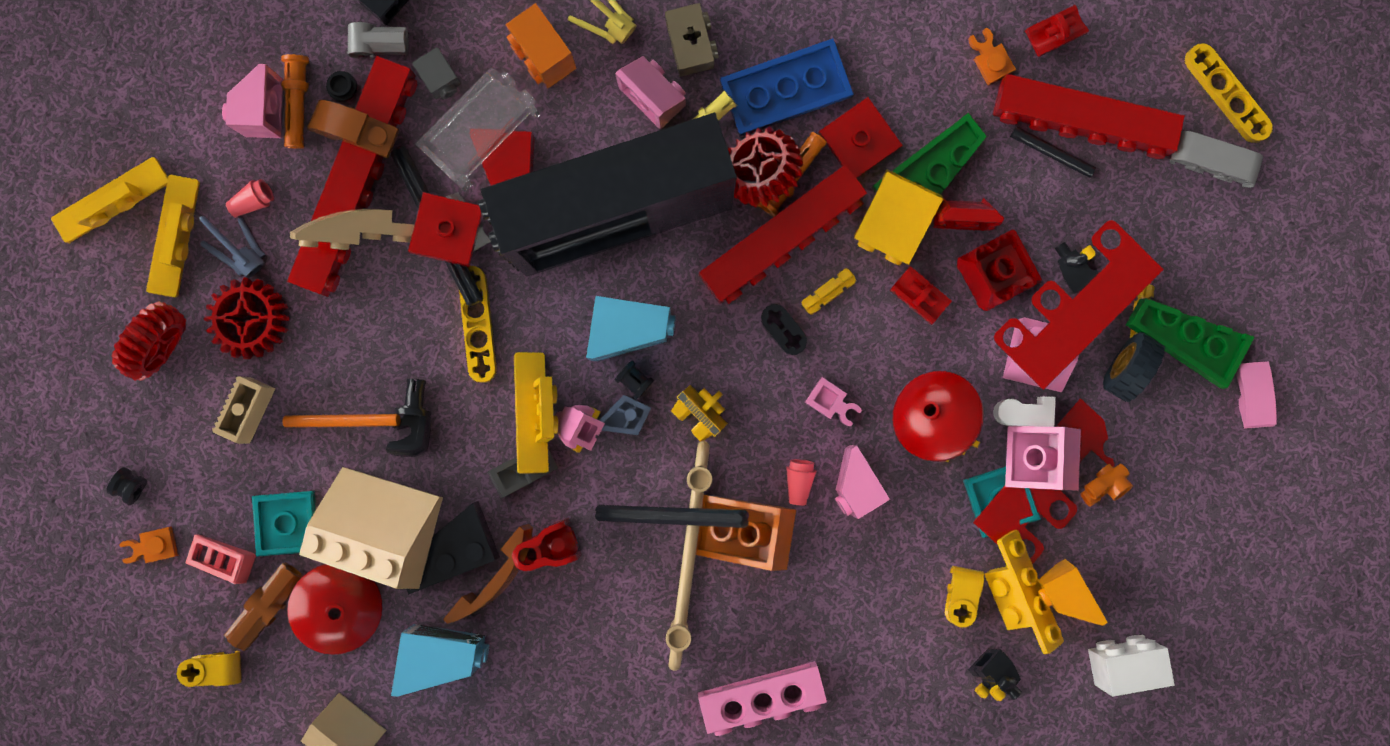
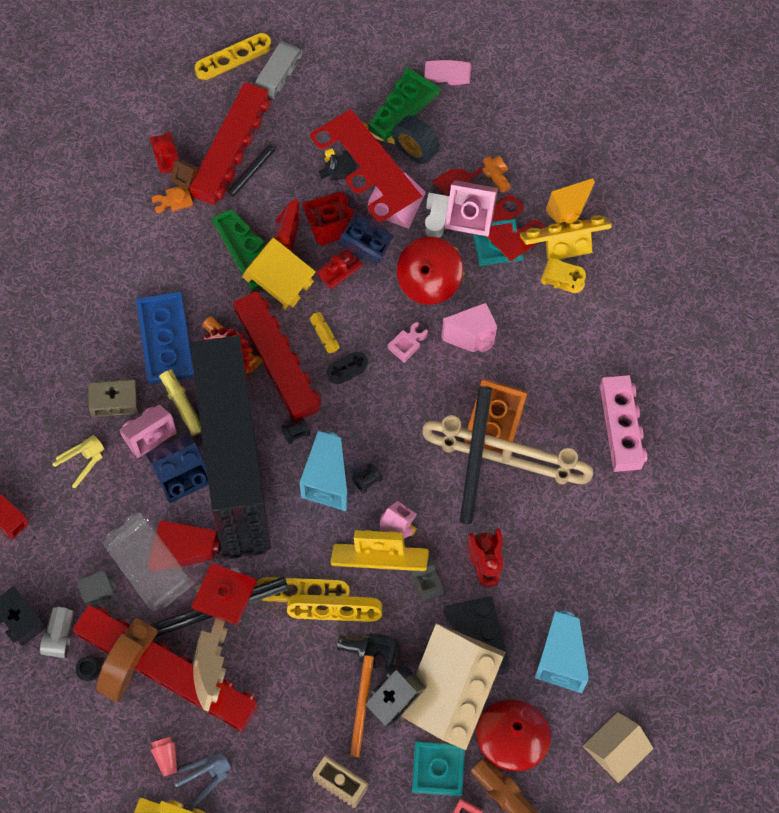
camera: 85 degrees left, 20 degrees down
(248, 329) = (253, 769): red gear -> none
(256, 104) = (93, 731): bright pink slope -> none
(295, 88) = (80, 705): orange pin -> none
(354, 459) = (403, 686): none -> brick
(458, 367) = (334, 609): none -> yellow beam
(471, 603) = (526, 627): dark orange slope -> none
(540, 44) = (95, 502): orange brick -> none
(604, 127) = (178, 468): none -> dark blue slope
(625, 416) = (394, 488): sand blue piece -> none
(684, 278) = (295, 430): none -> black bush
(704, 408) = (410, 430): yellow hips -> none
(800, 480) = (463, 373): coral cone -> none
(860, 138) = (213, 293): red plate -> none
(966, 323) = (366, 239): none -> dark blue slope
(998, 673) = (622, 262): black piece -> none
(1026, 61) = (183, 173): none -> reddish brown plate
(1130, 666) = (626, 174): white brick -> none

